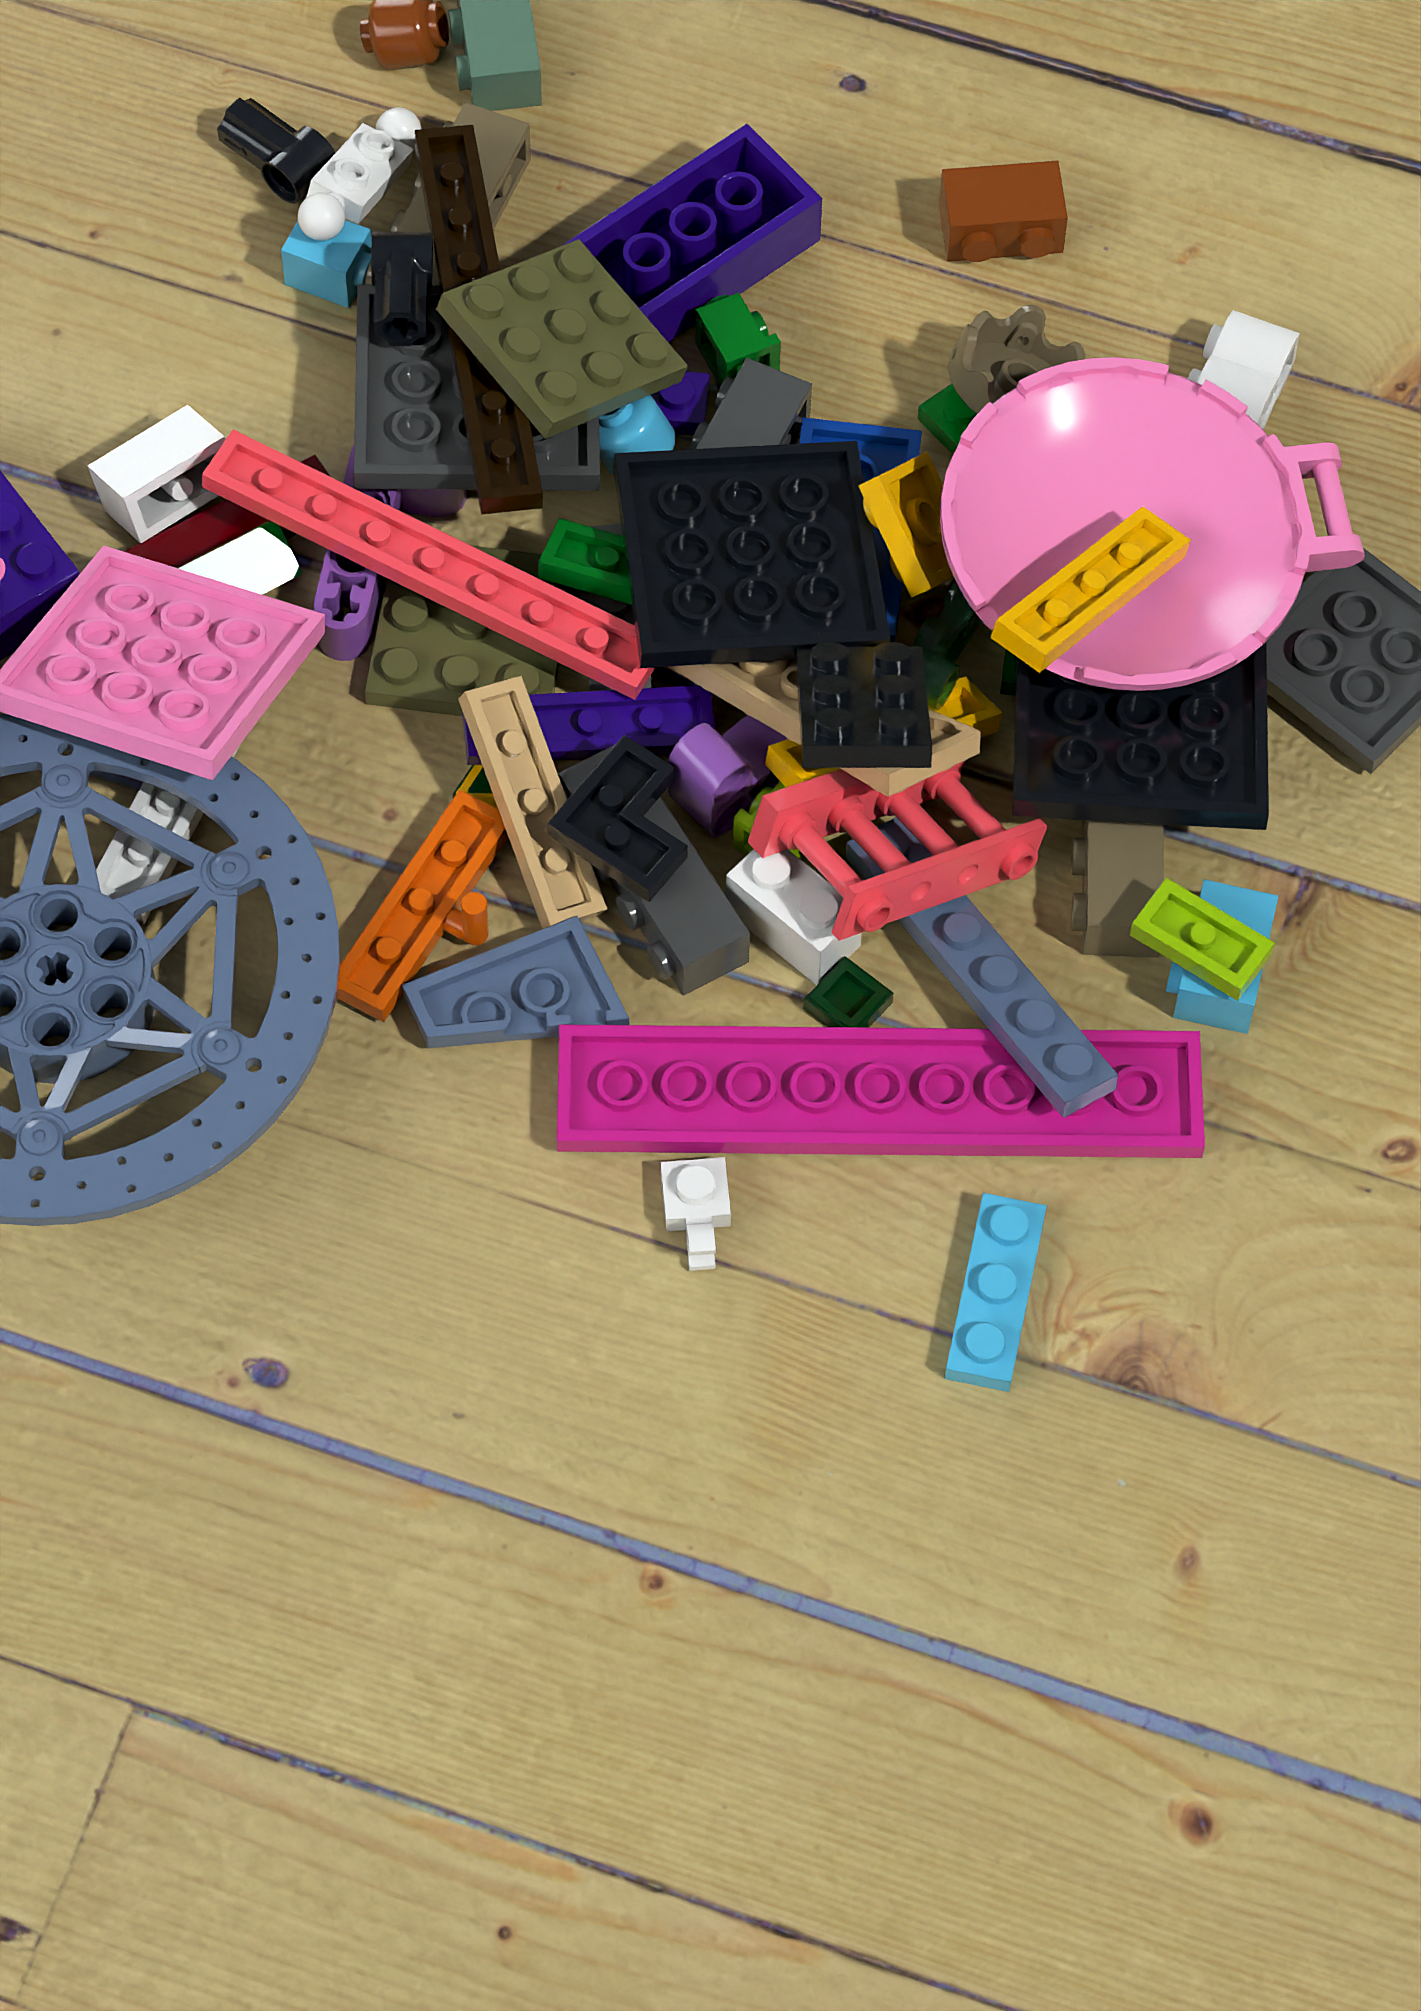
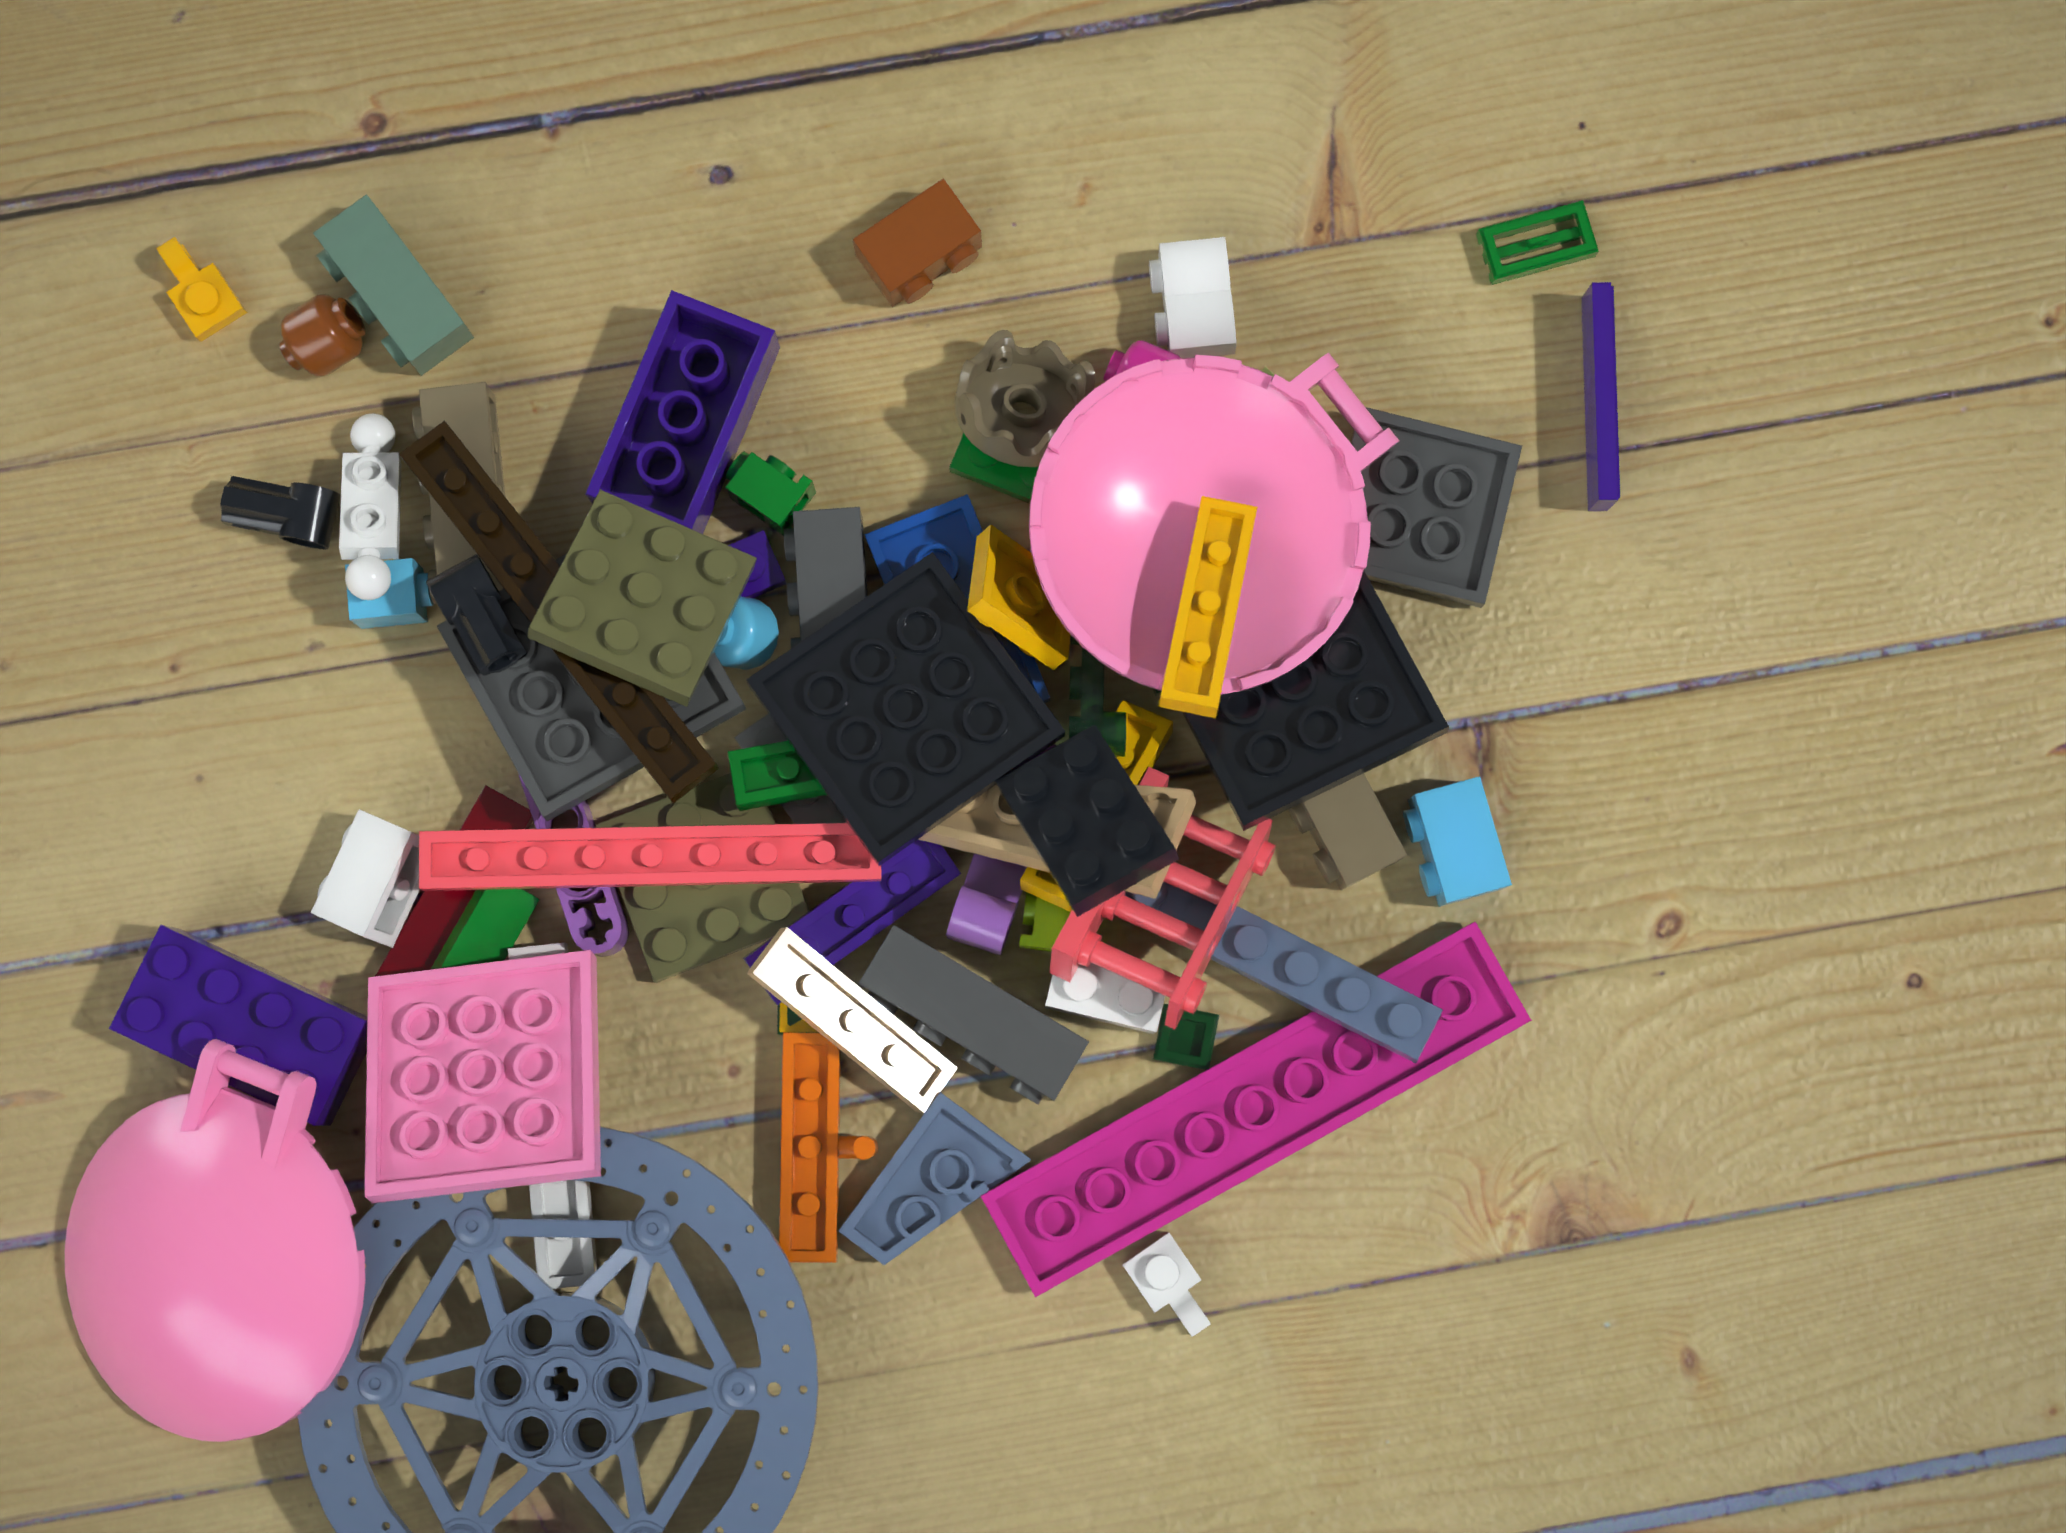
camera: 30 degrees left, 20 degrees up
(608, 823) = (924, 1016): black plate -> none
(995, 1292) = (1433, 1224): medium azure plate -> none
(1202, 939) = (1448, 858): lime plate -> none

